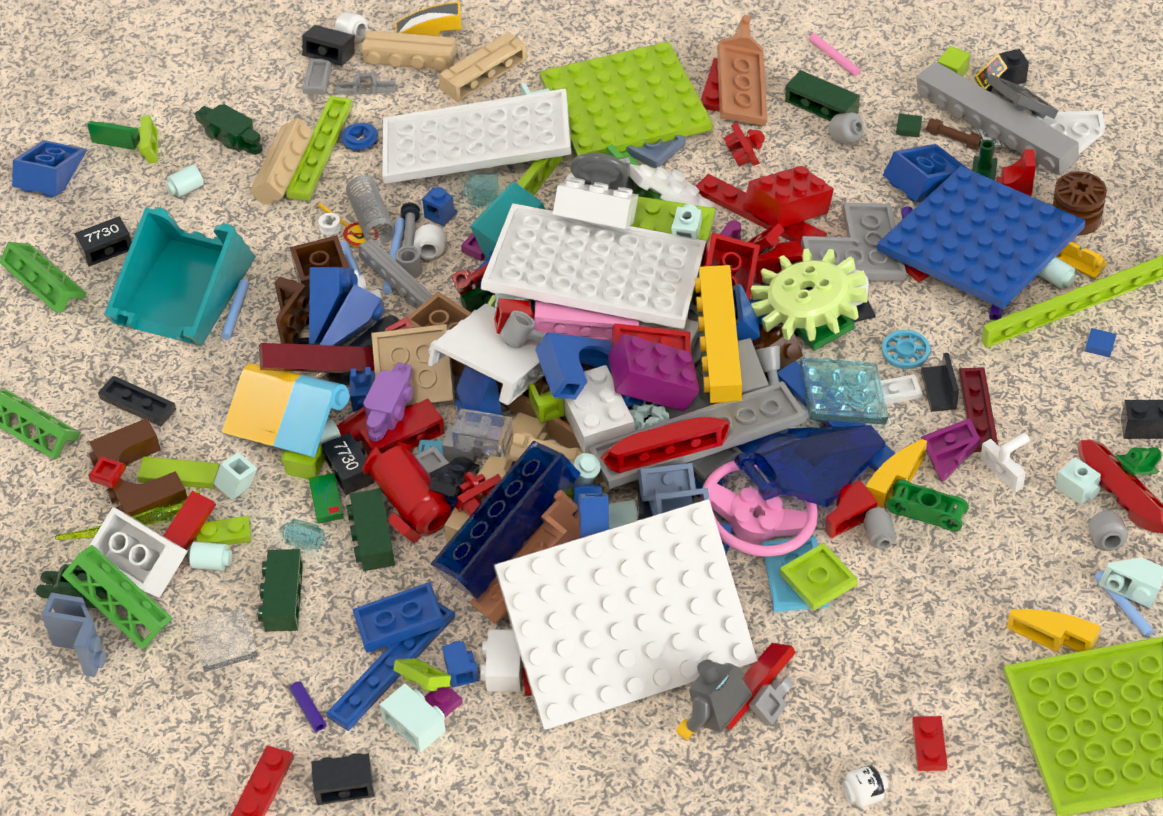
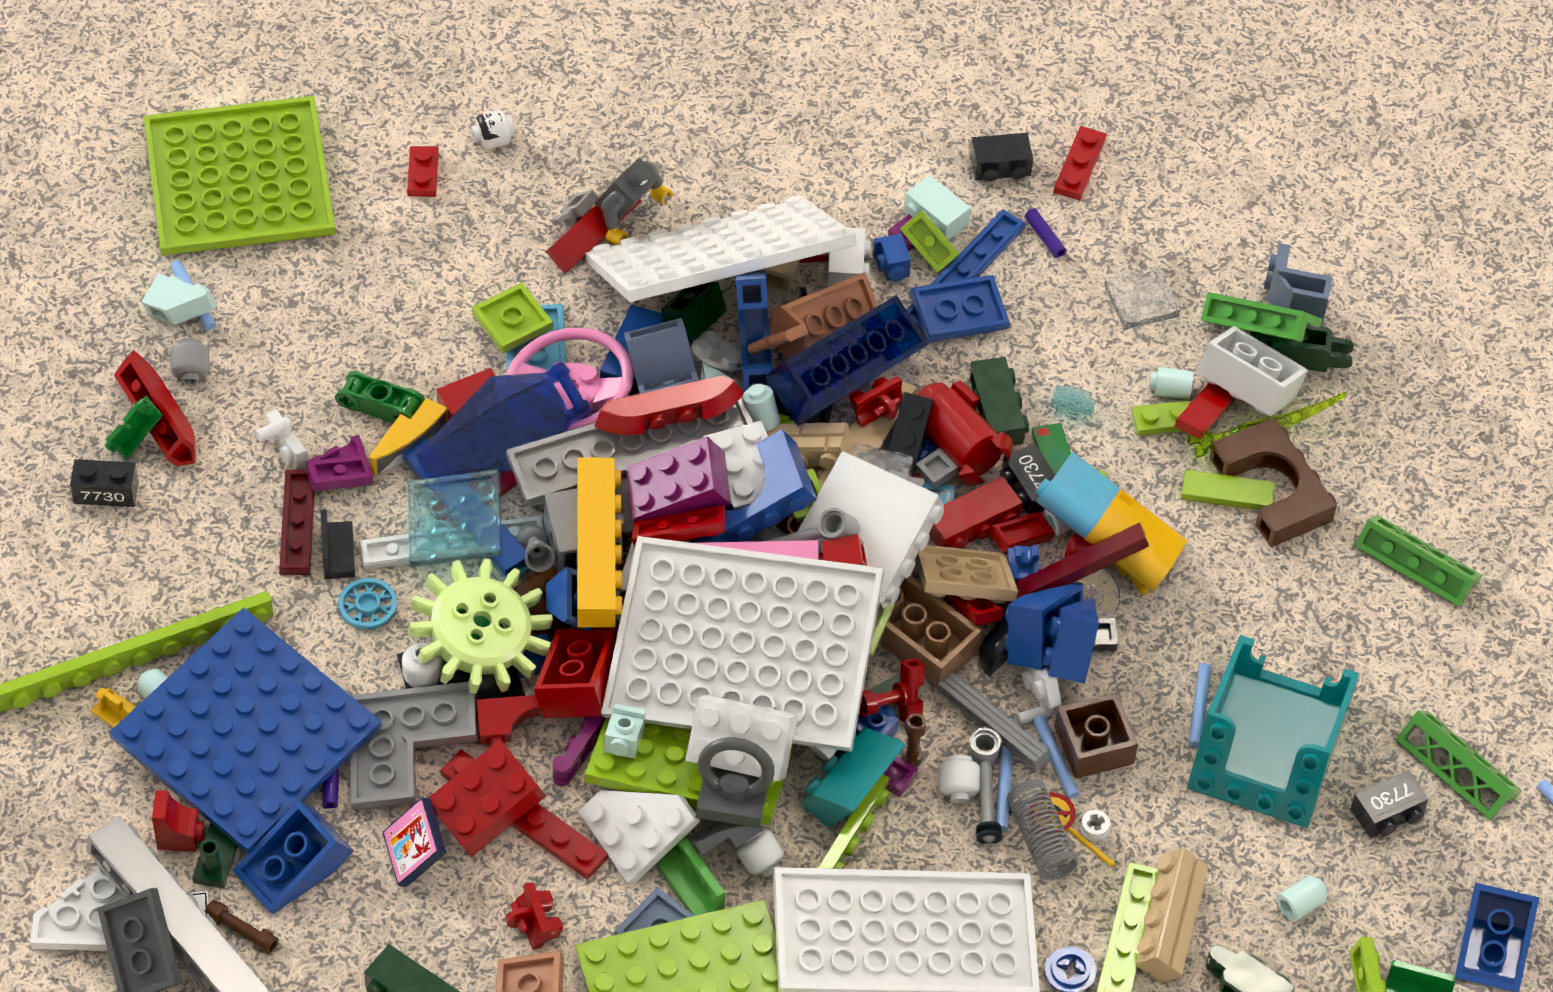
camera: 175 degrees right, 5 degrees up
(107, 472) = (1305, 460): red tile -> none
(137, 400) = (1295, 577): black plate -> none
(235, 476) = (1159, 461): light aqua brick -> none
(281, 590) = (1088, 341): dark green brick -> none
(293, 309) = (1121, 673): reddish brown bracket -> none
(387, 400) = (991, 520): medium lavender hinge -> none
(438, 200) = (949, 832): blue brick -> none
(462, 233) = (915, 728): none -> reddish brown bar
(481, 189) = (894, 854): clear light blue brick -> none
(768, 238) = (528, 740): red plate -> none
(837, 174) = (414, 842): none -> tile
(846, 128) = (390, 926): light grey head -> none
(879, 528) = (435, 374): light grey brick -> none
(909, 125) = (300, 949): dark green tile -> none
(1054, 629) = (273, 261): yellow slope -> none
(1078, 481) = (207, 417): light aqua brick -> none
(1083, 197) = (107, 776): reddish brown wheel -> none
(1100, 342) = (131, 599): blue tile -> none

